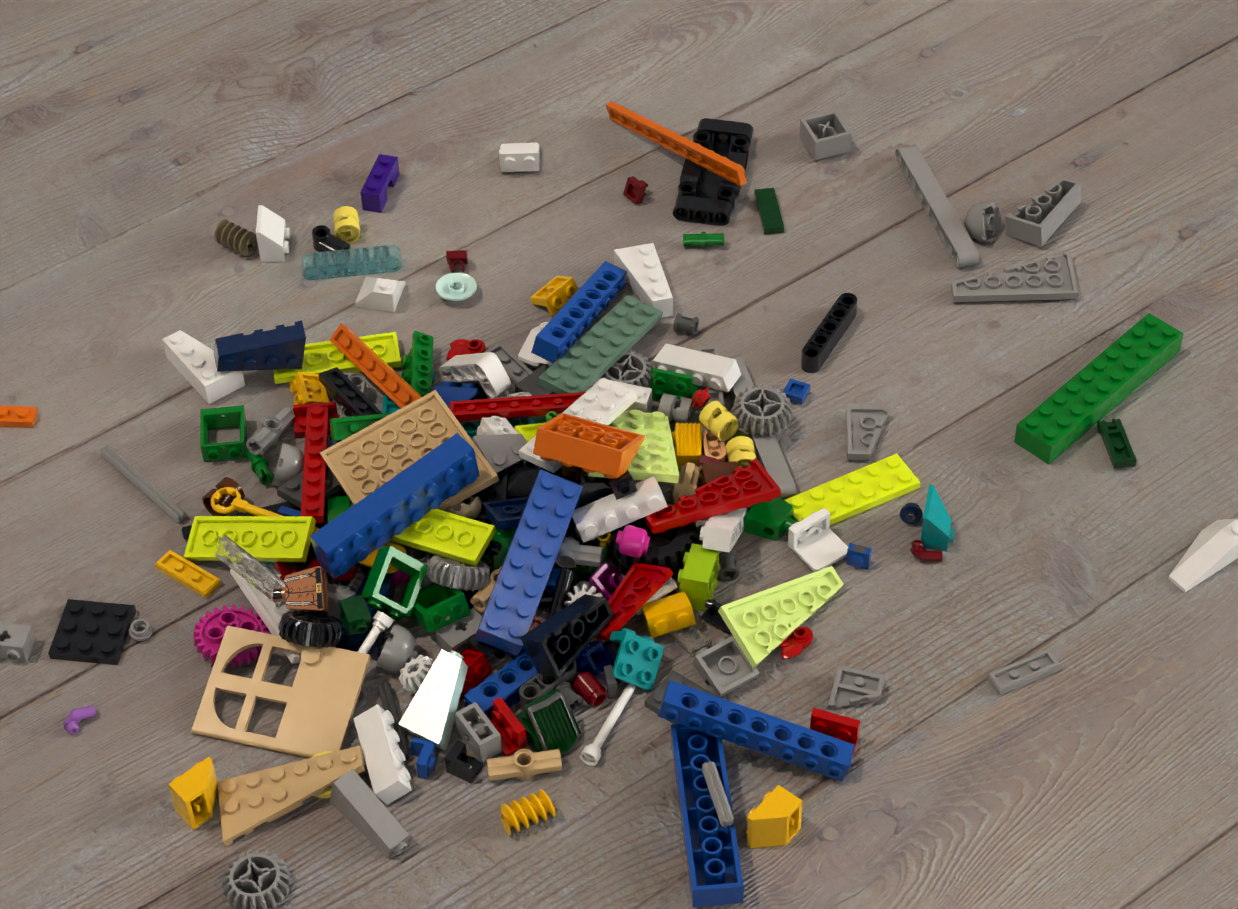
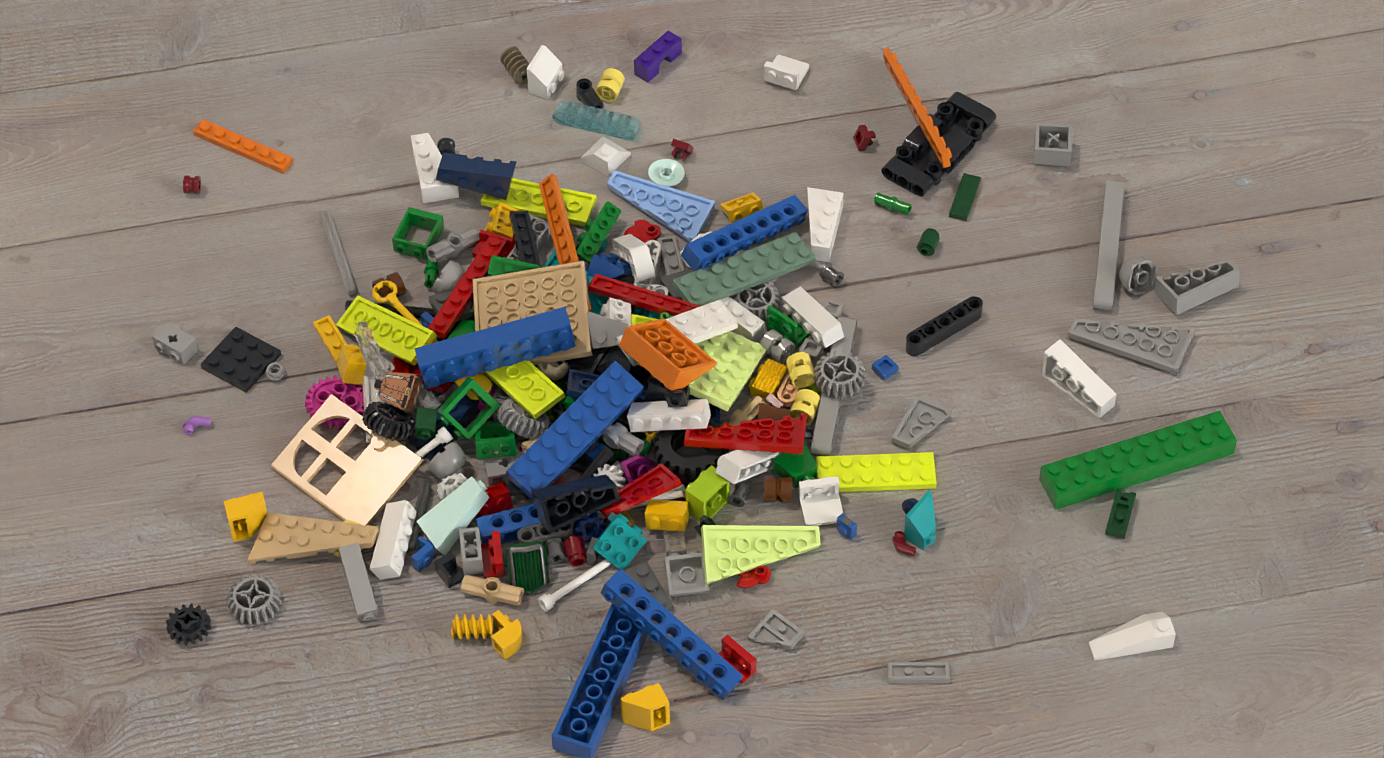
camera: 25 degrees right, 5 degrees up
(206, 337) = (446, 145): none -> black wheel
(229, 588) = (351, 364): none -> yellow brick
(481, 317) = (674, 208): none -> light blue wing
(571, 805) = (509, 635): none -> yellow brick
(633, 541) = (664, 446): dark pink head -> none
(701, 398) = (797, 345): red plate -> none
(717, 794) = (612, 671): light grey axle -> none
(762, 262) = (928, 242): none -> dark green brick
(764, 546) = (778, 489): none -> reddish brown wheel
(993, 335) = (1077, 380): none -> white wedge

